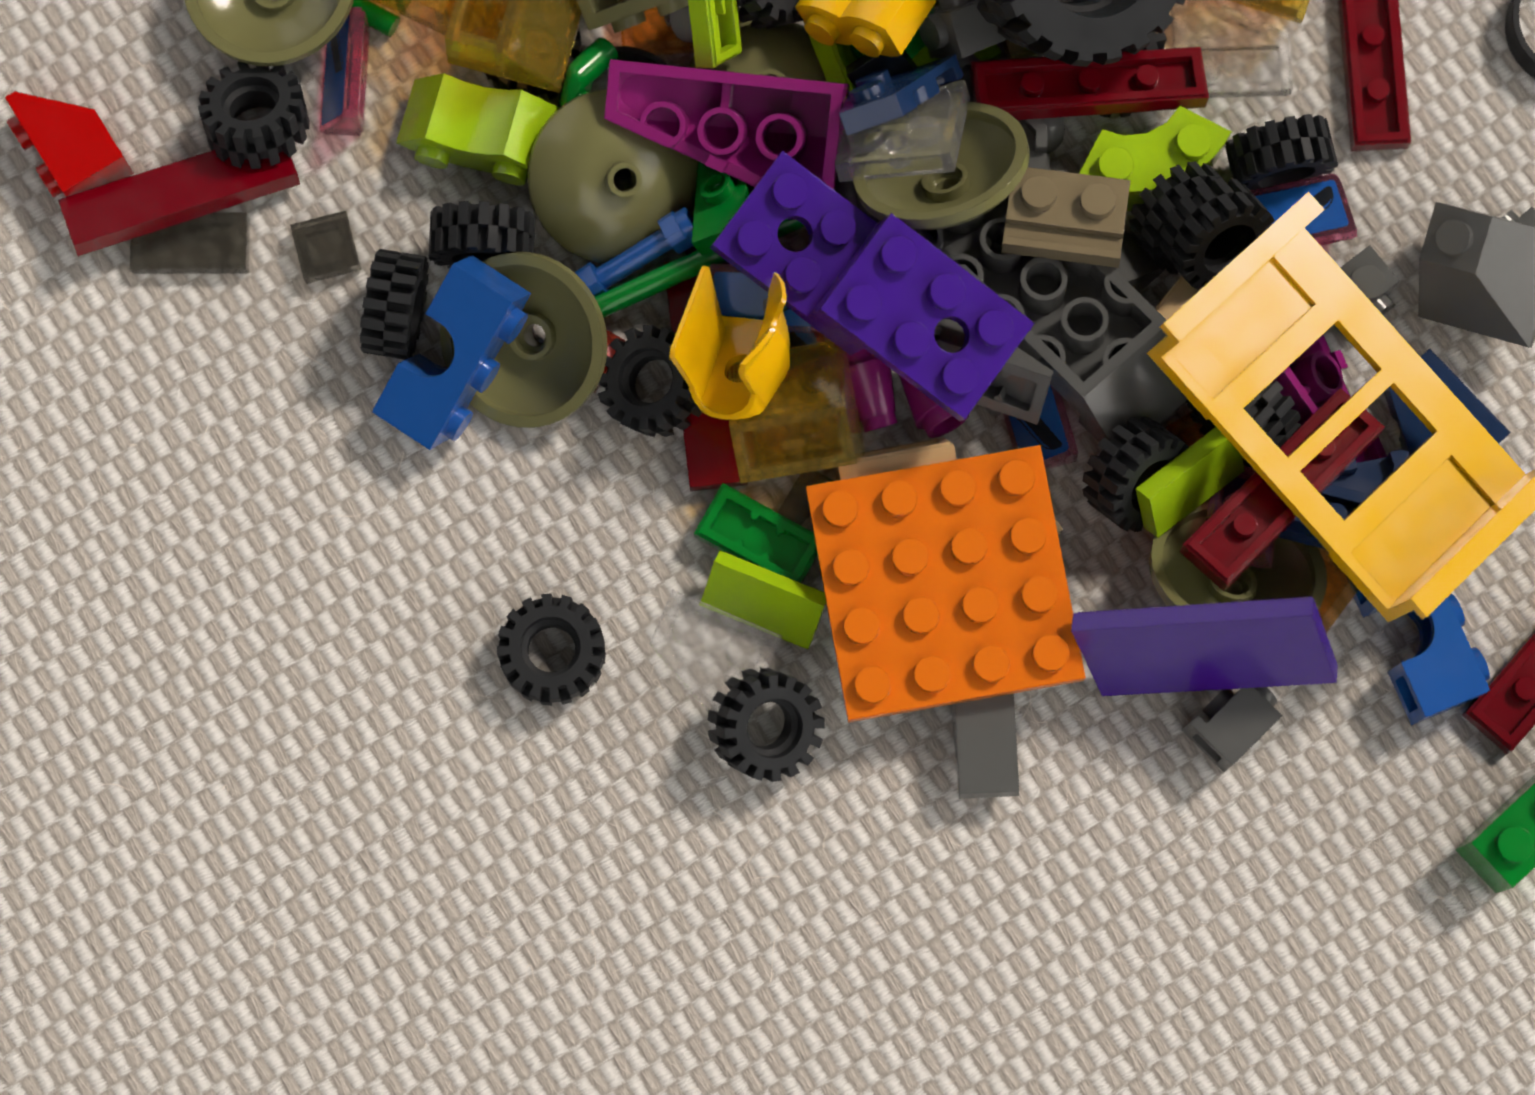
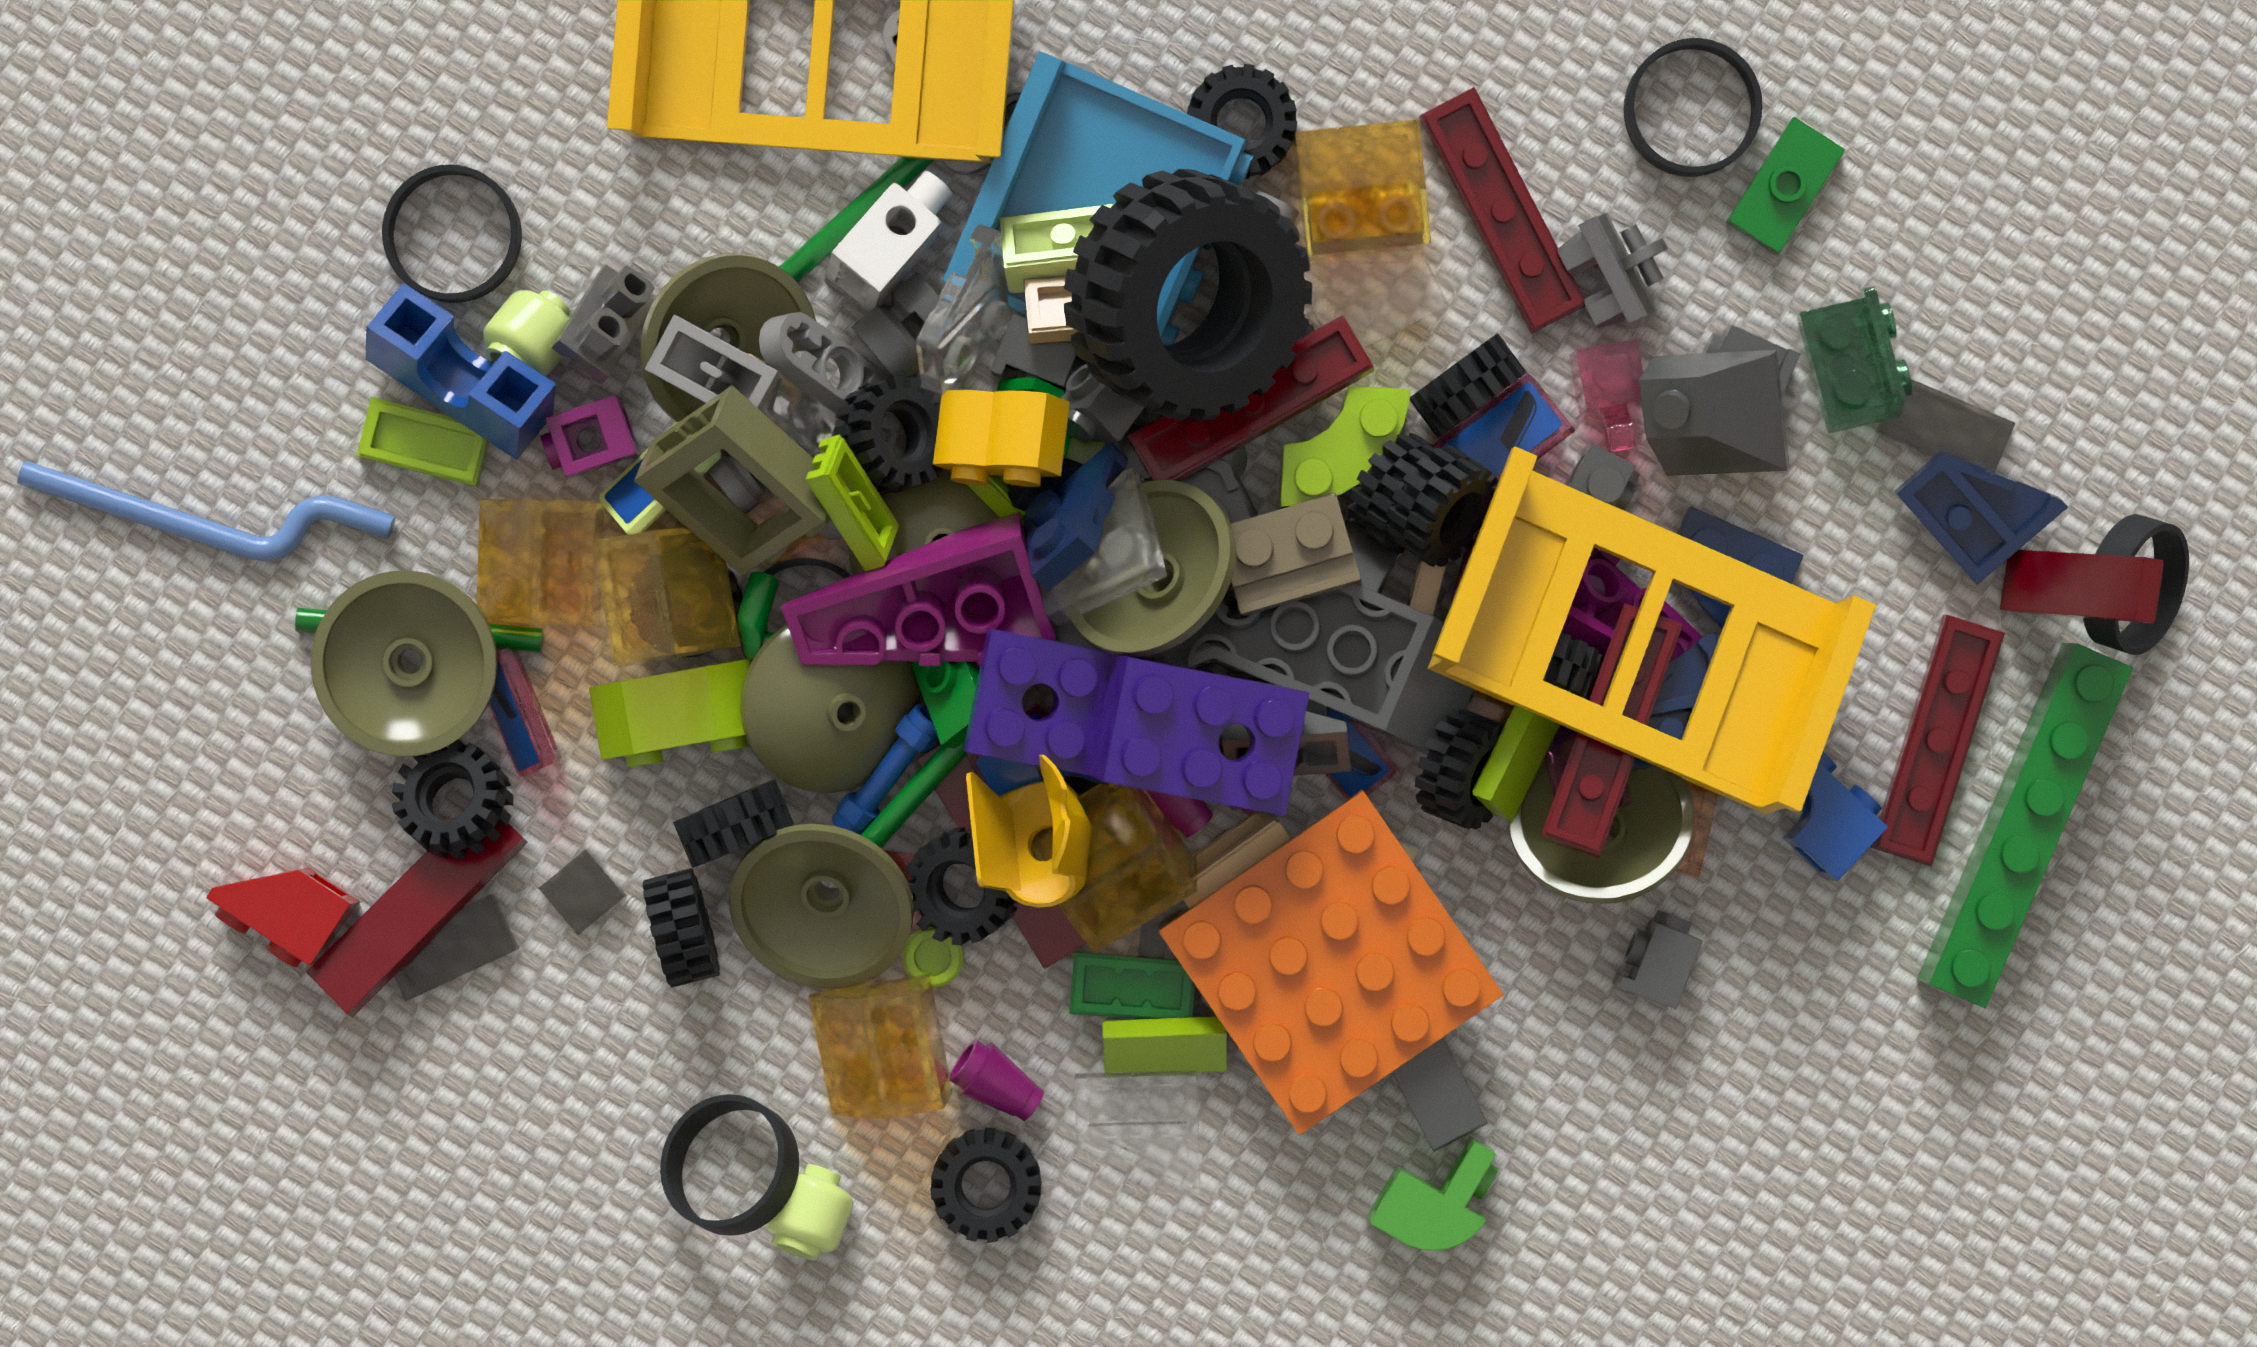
camera: 20 degrees left, 10 degrees up
(316, 486) = (681, 1138): none -> black tyre
(385, 601) = (813, 1215): none -> yellowish green head
(480, 314) = (768, 909): blue arch -> none
(518, 486) = (882, 1048): none -> clear yellow slope
(597, 437) = (932, 957): none -> lime tile
(602, 564) = (995, 1080): none -> magenta cone
(794, 739) = (1251, 1174): black tyre -> none
(932, 856) = (1431, 1215): none -> bright green brick
(1206, 647) = (1603, 918): dark purple tile -> none
(1402, 211) = (1608, 382): none -> clear pink brick
(1442, 97) = (1602, 246): none -> flat silver hips

